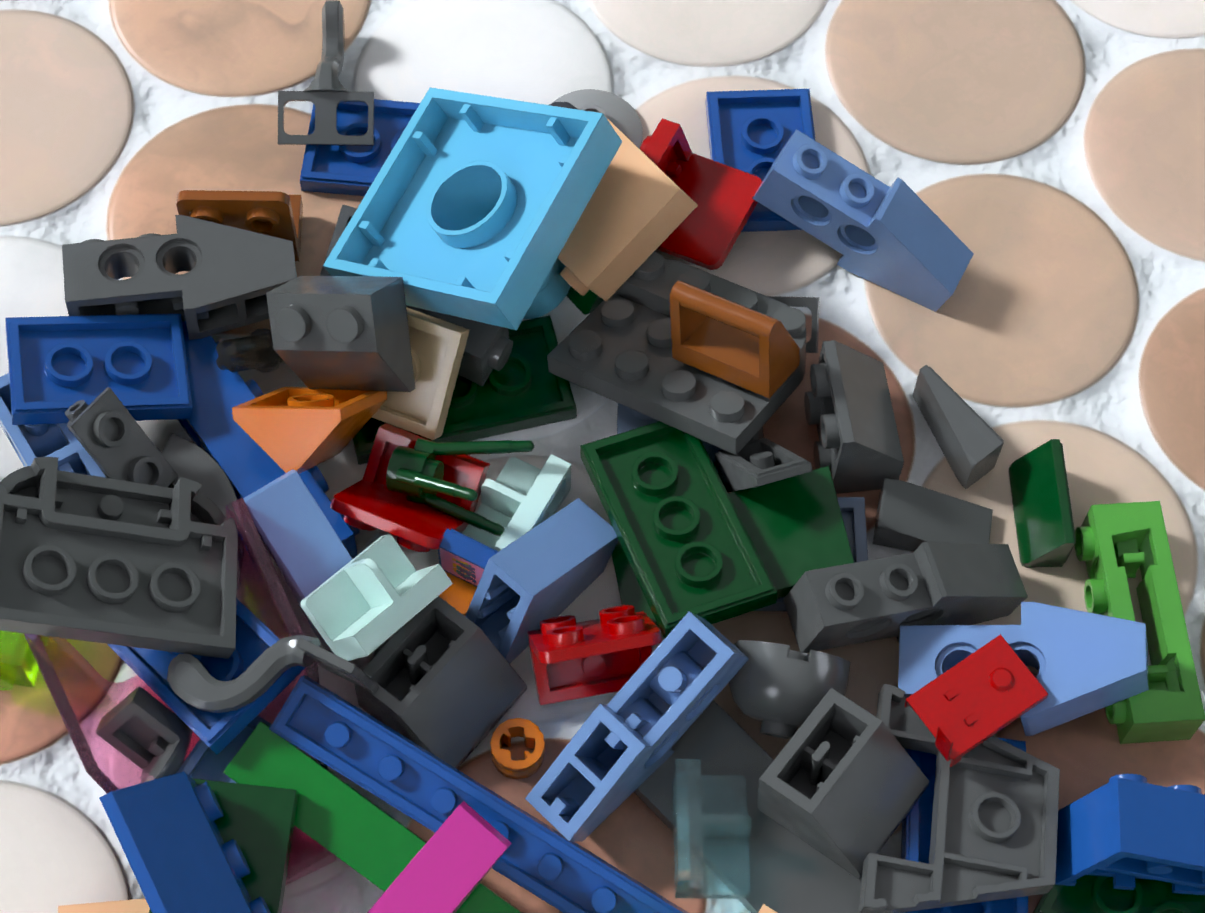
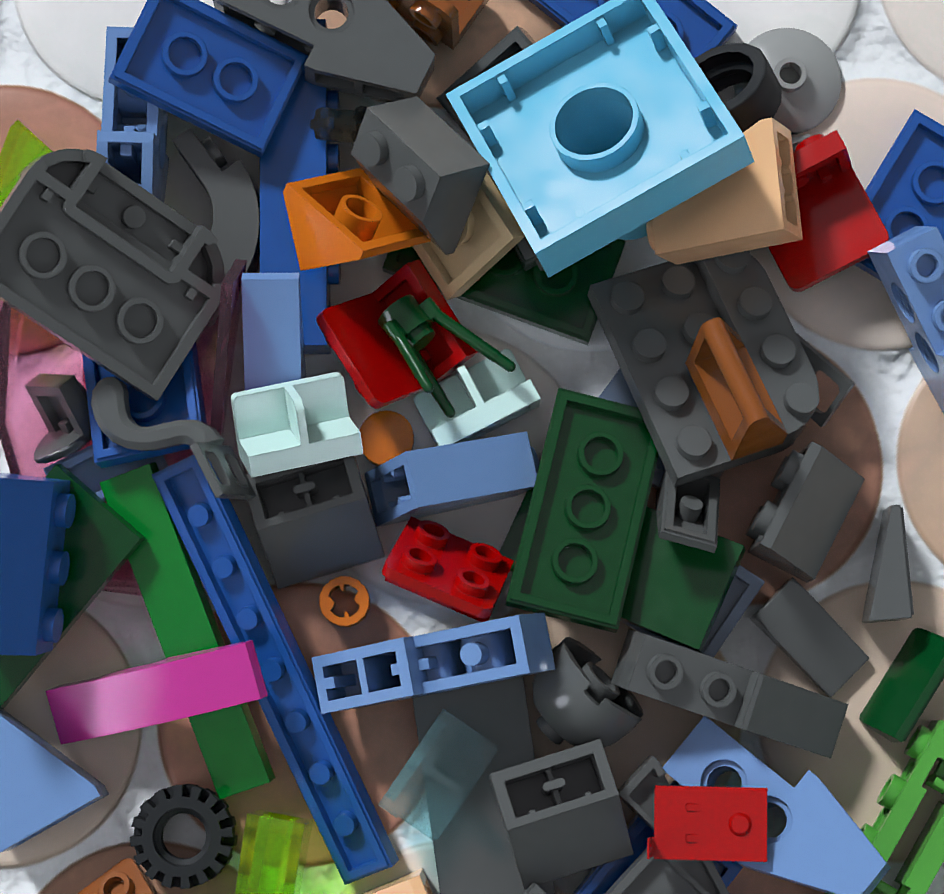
camera: 40 degrees right, 20 degrees up
(118, 441) = (178, 158): dark grey hinge -> none
(463, 556) = (402, 425): blue tile -> none

